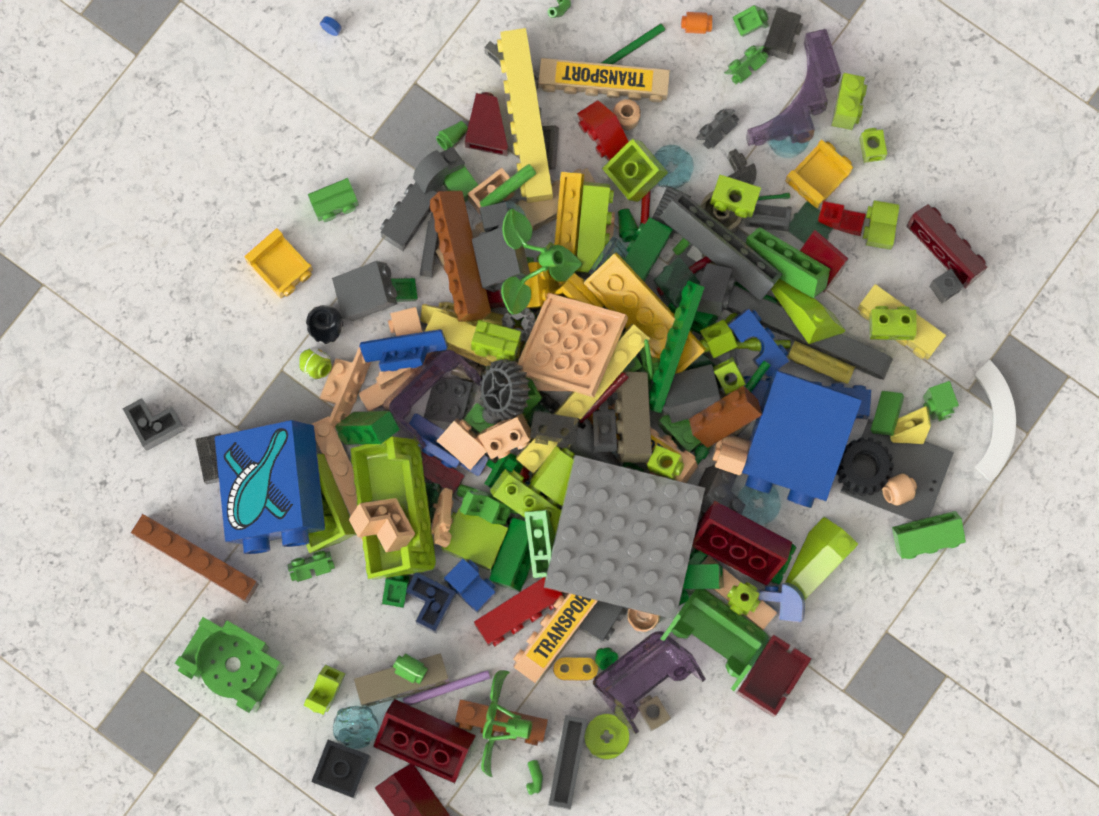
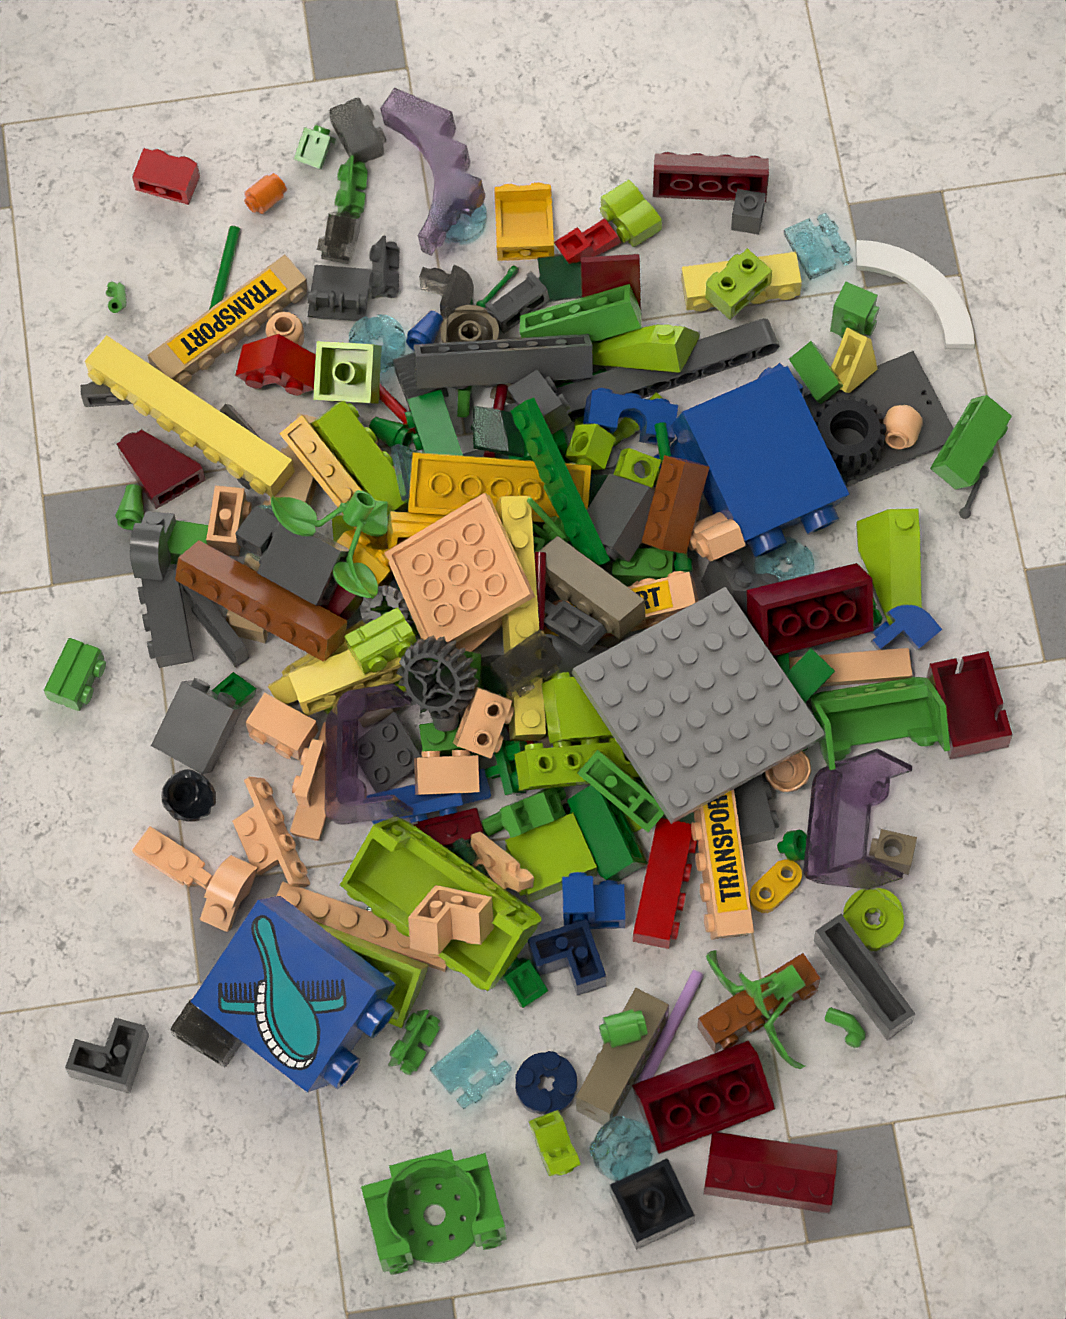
camera: 40 degrees left, 10 degrees down
(195, 558) = (289, 1147): dark orange brick -> none
(279, 264) = (81, 786): yellow panel -> none
(286, 348) = (171, 859): none -> light nougat hinge
(295, 393) = (226, 891): none -> light nougat brick
(315, 363) = (216, 843): lime head -> none
(324, 602) = (466, 1061): none -> clear light blue plate
(361, 664) = (549, 1066): none -> dark blue plate
(367, 427) = (336, 847): green brick -> none
(403, 350) = (296, 740): blue bracket -> none
(509, 186) = (242, 490): bright green axle -> none
(659, 456) = (654, 591): lime brick -> none
(680, 118) = (339, 293): none -> dark grey hinge
(701, 185) = (425, 330): none -> blue cone
(711, 87) = (340, 237): none -> clear smoke brick
(725, 187) = (476, 290): lime brick -> none
(739, 606) = (857, 662): lime brick -> none
(821, 362) = (707, 385): light yellow plate -> none
(848, 101) = (484, 131): lime brick -> none
(873, 154) = (551, 162): lime brick -> none
(886, 568) = (965, 512): none -> dark grey hinge
(958, 341) = (810, 249): none -> clear light blue plate

